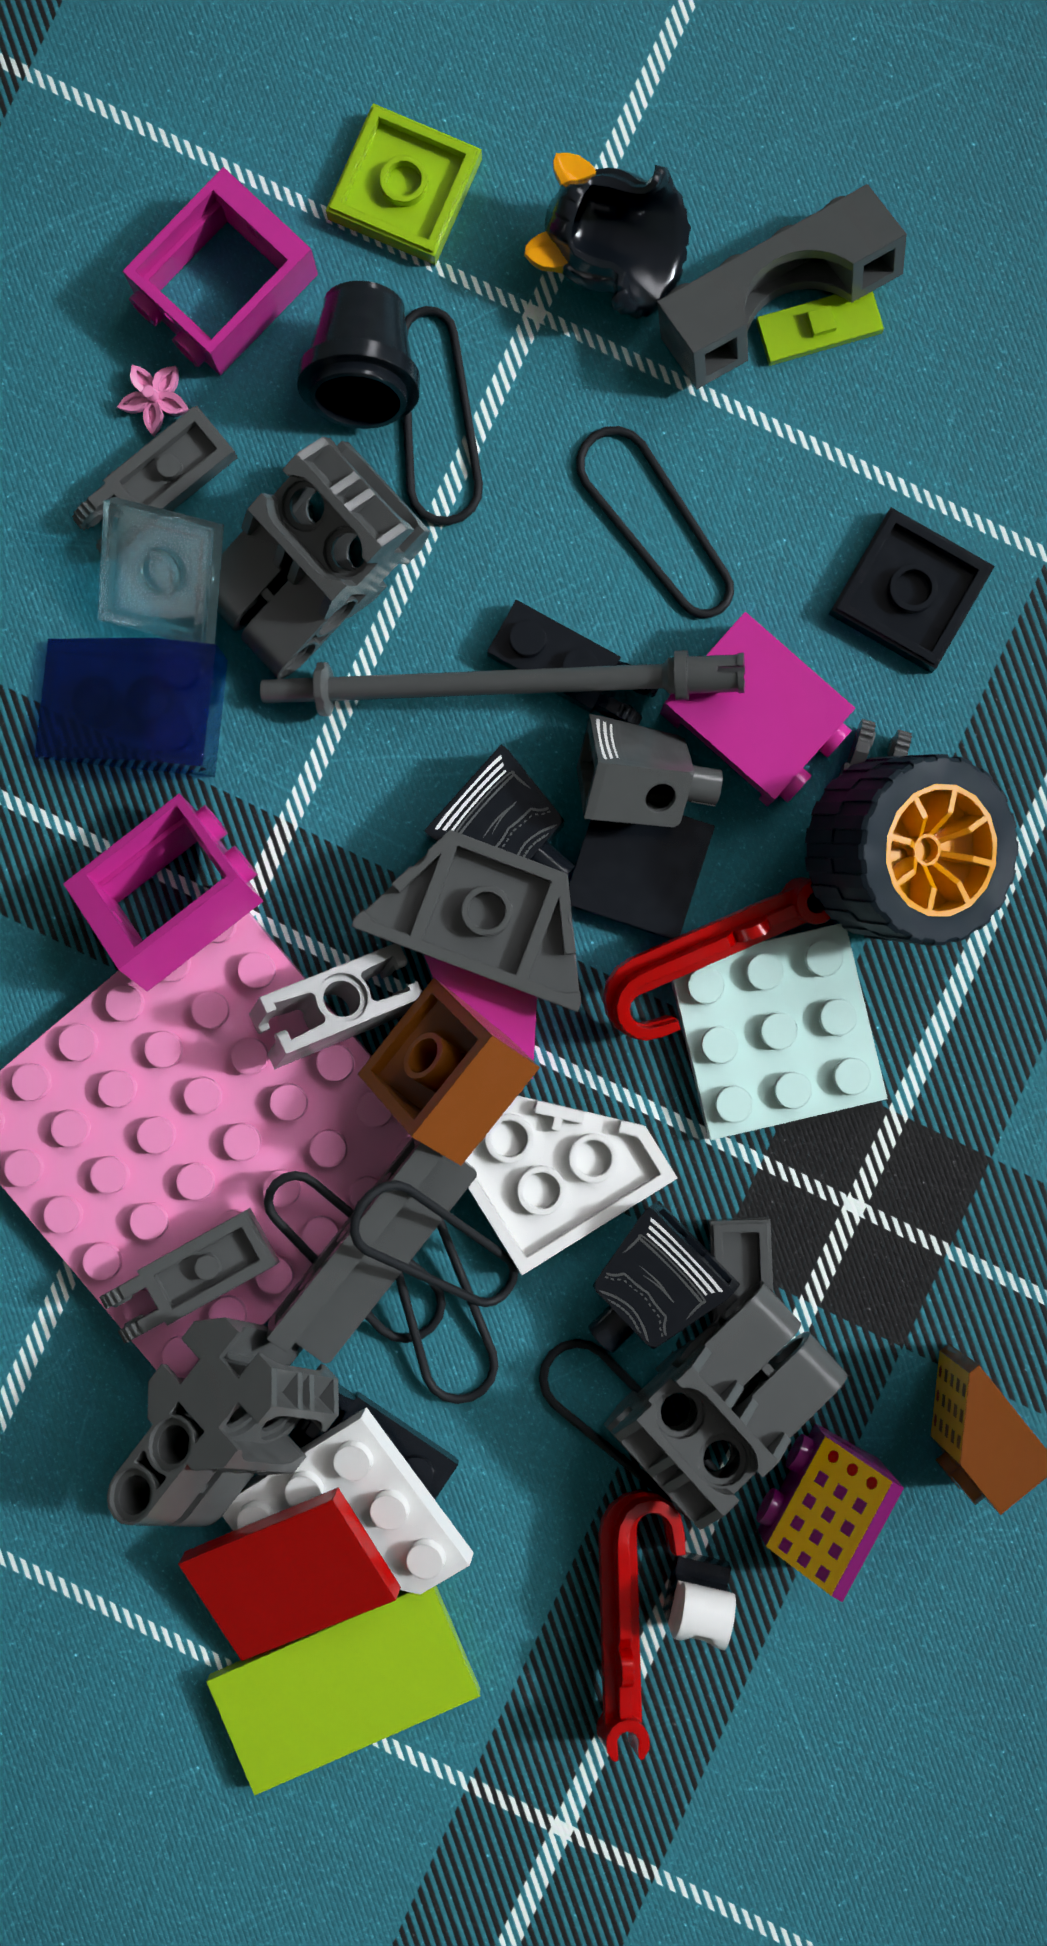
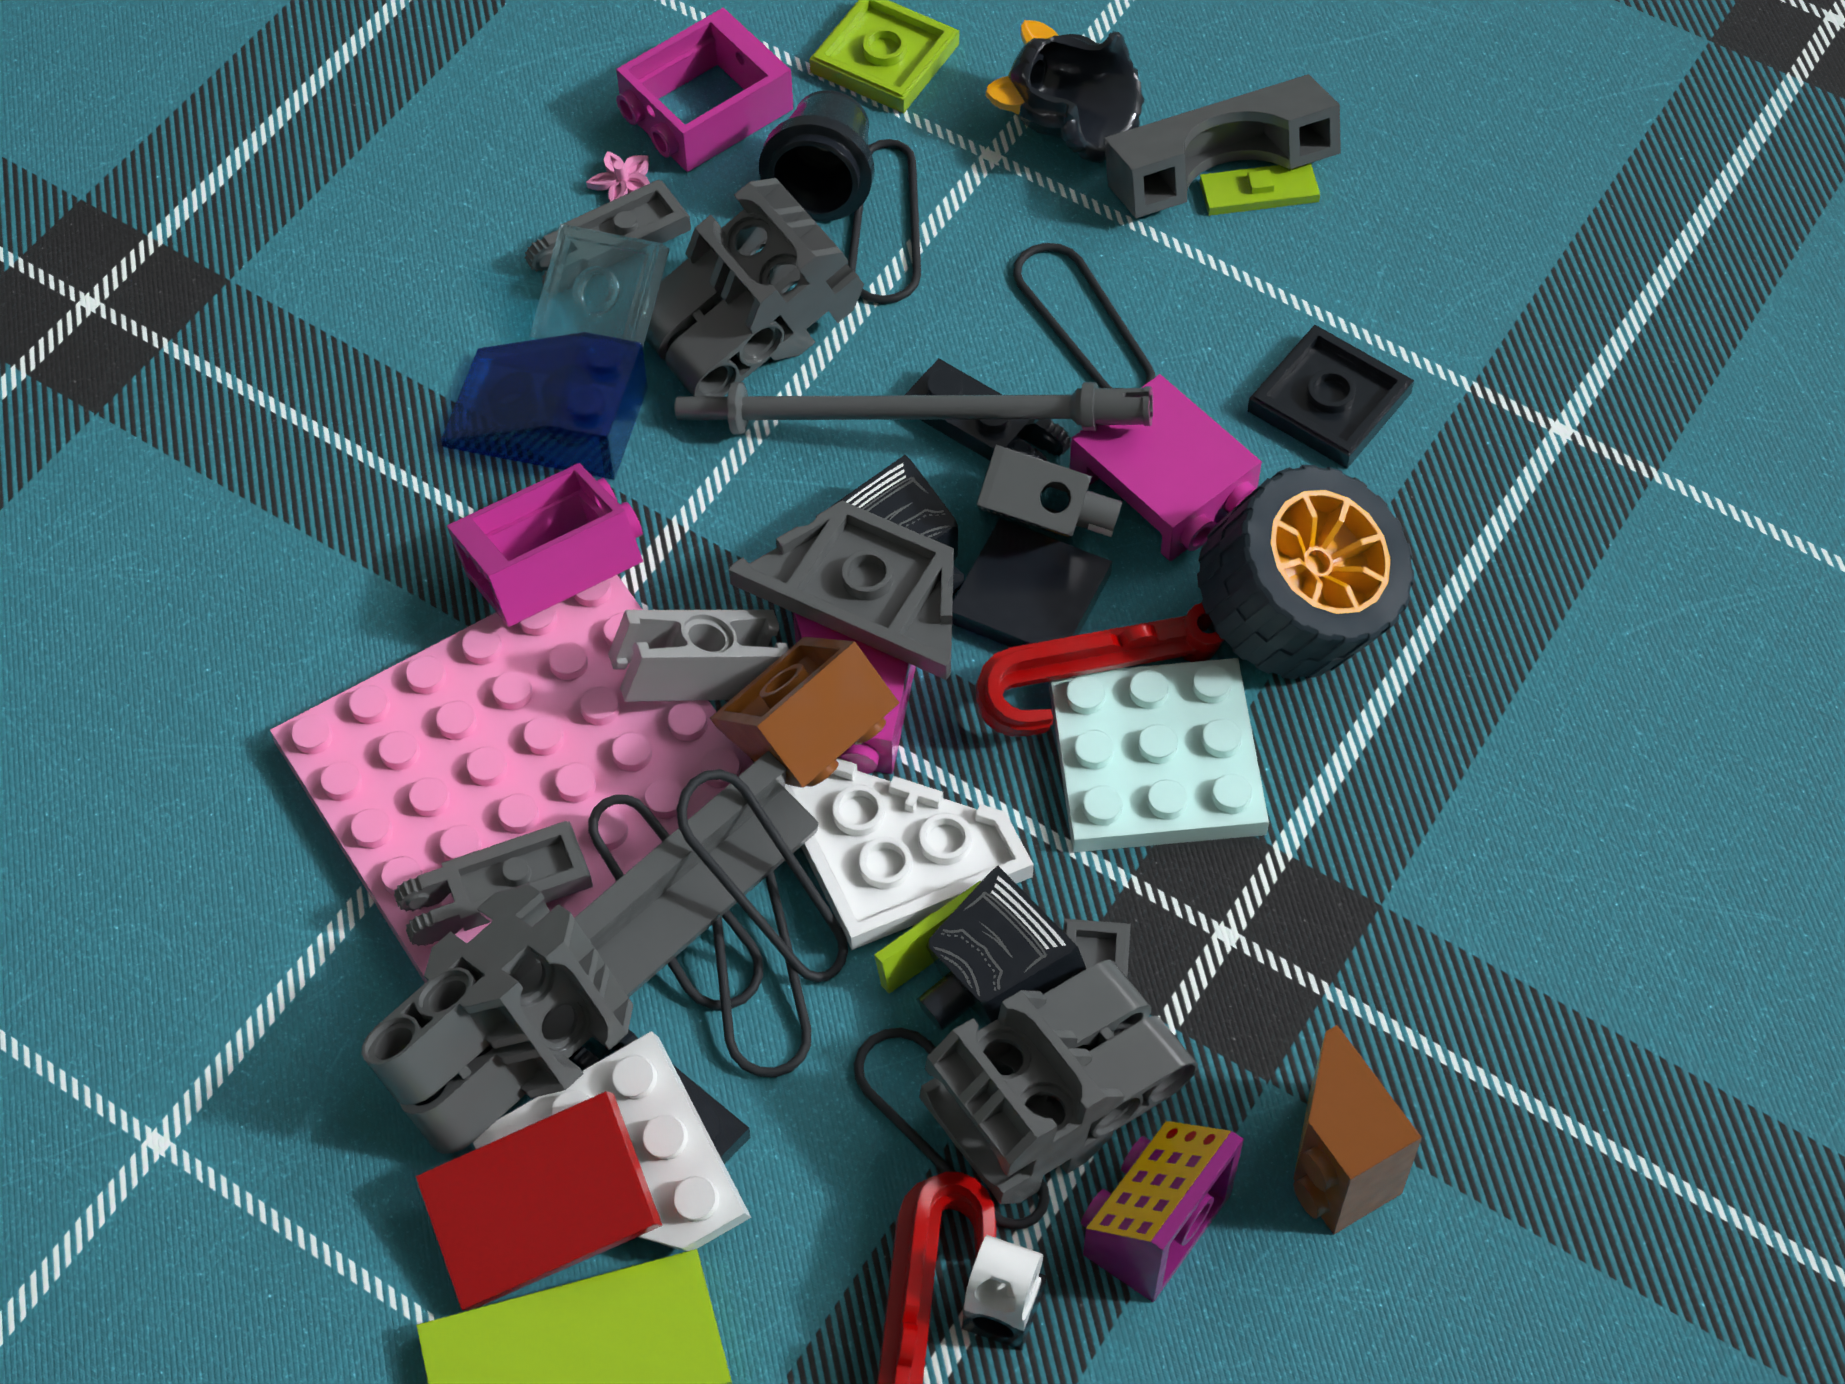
camera: 10 degrees right, 30 degrees down
(592, 1257) = (909, 952): none -> lime piece

